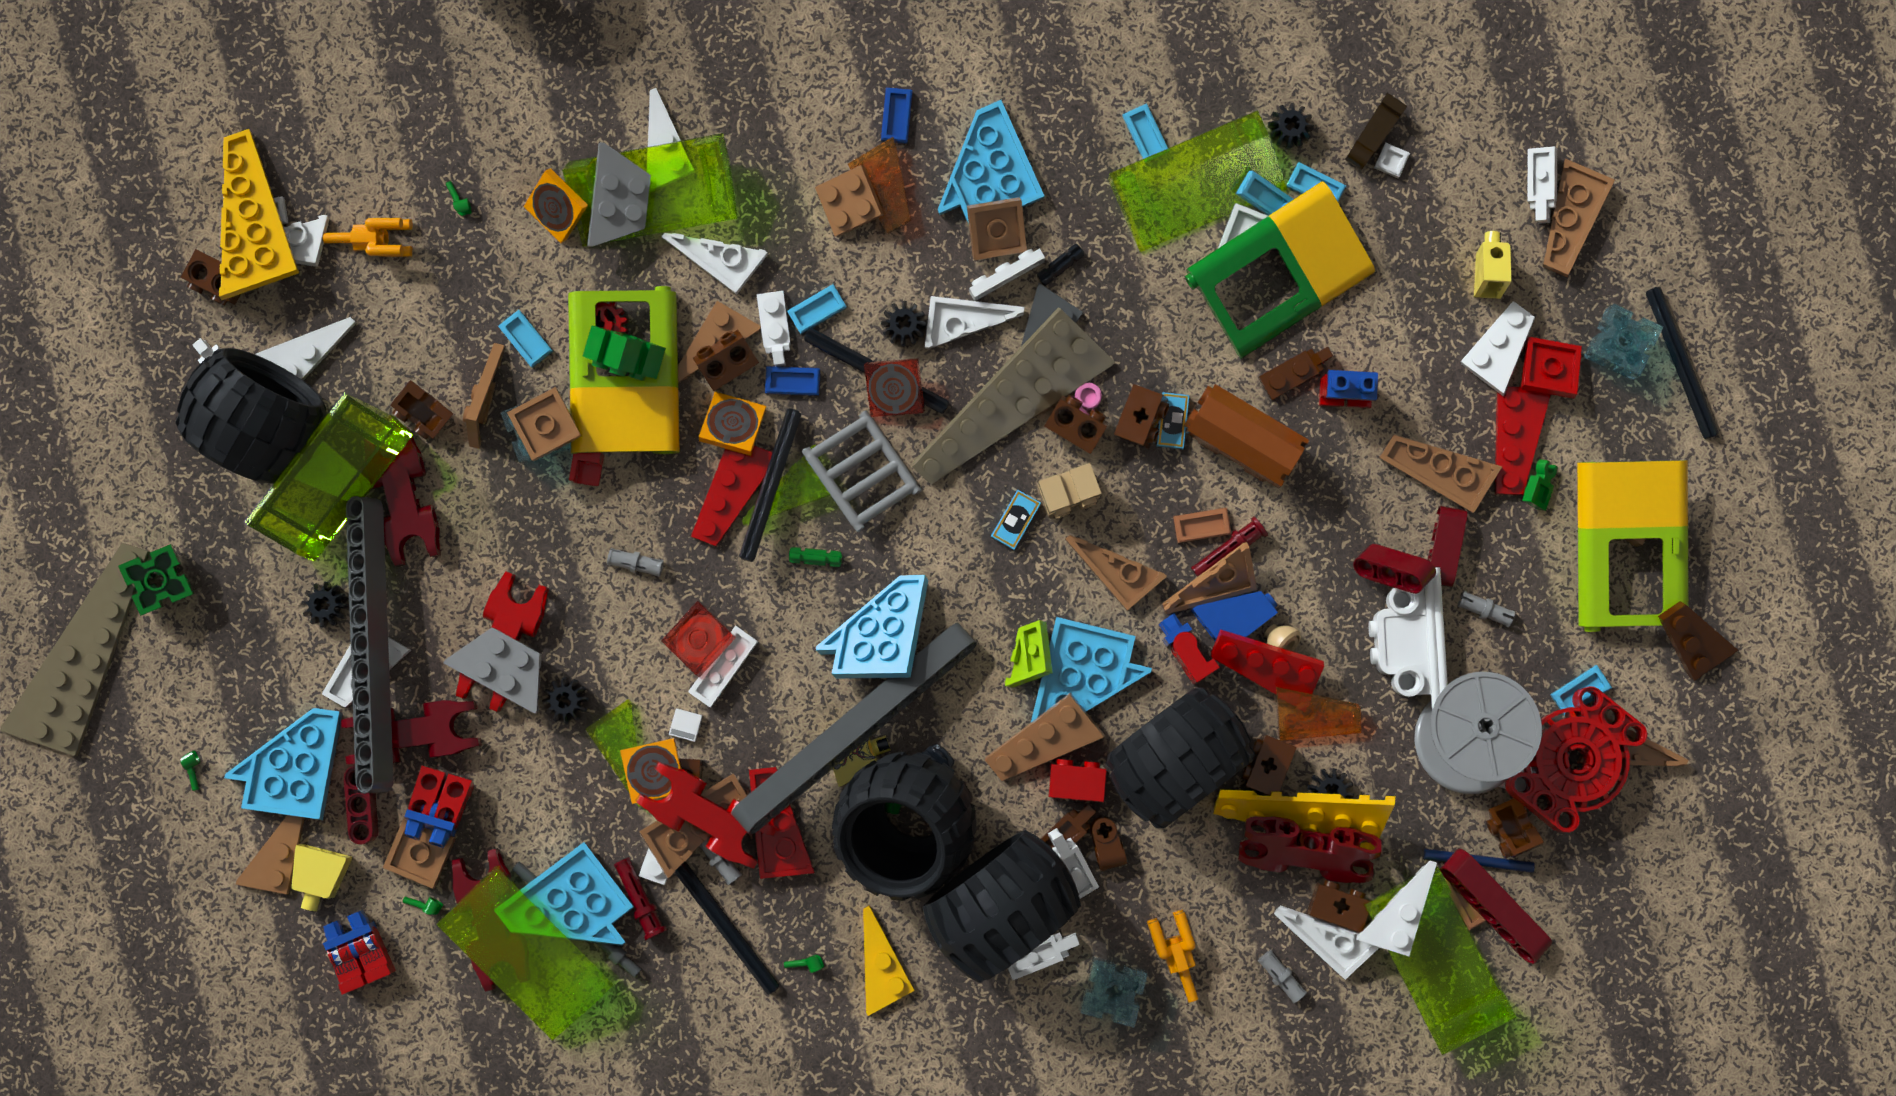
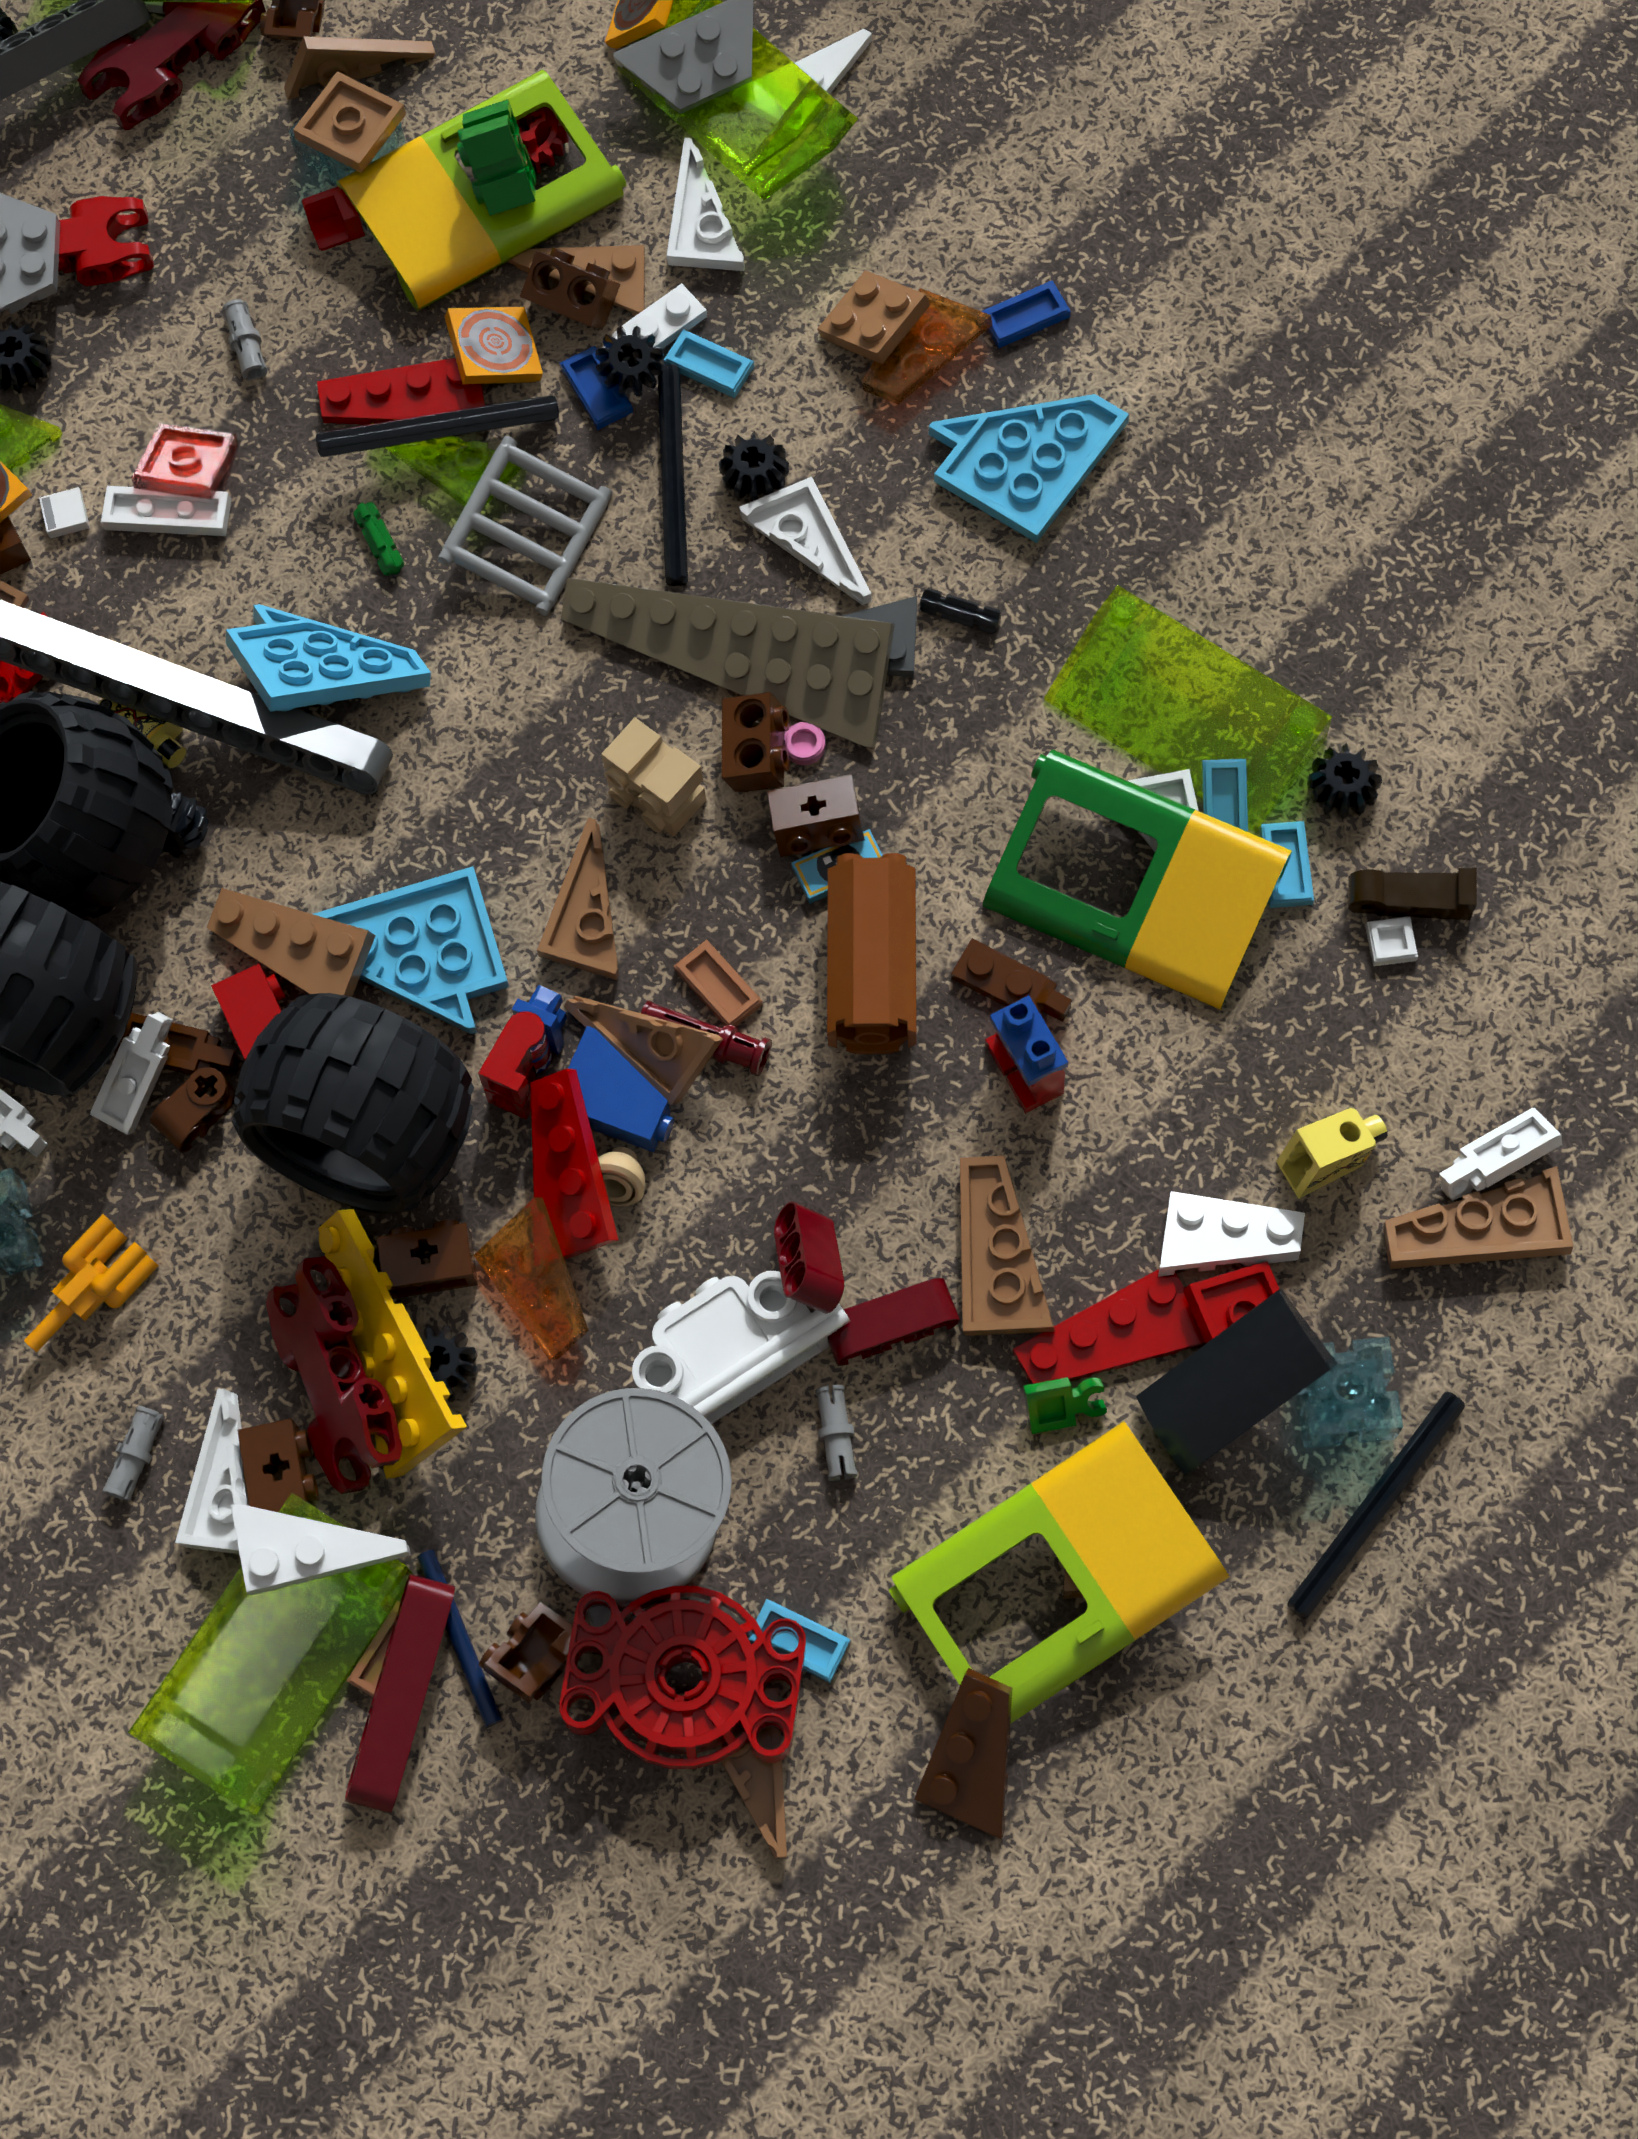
camera: 55 degrees right, 15 degrees down
(525, 338) = (458, 71): medium azure tile -> none
(807, 349) = (640, 351): none -> black gear
(894, 387) = (660, 499): tile -> none
(997, 228) = (952, 500): medium nougat plate -> none
(1006, 273) = (901, 549): white plate -> none
(1015, 519) = (573, 747): tile -> none
(1030, 654) = (402, 863): lime wing -> none
(1144, 131) = (1214, 607): medium azure tile -> none
(1591, 394) = (1234, 1381): none -> black slope

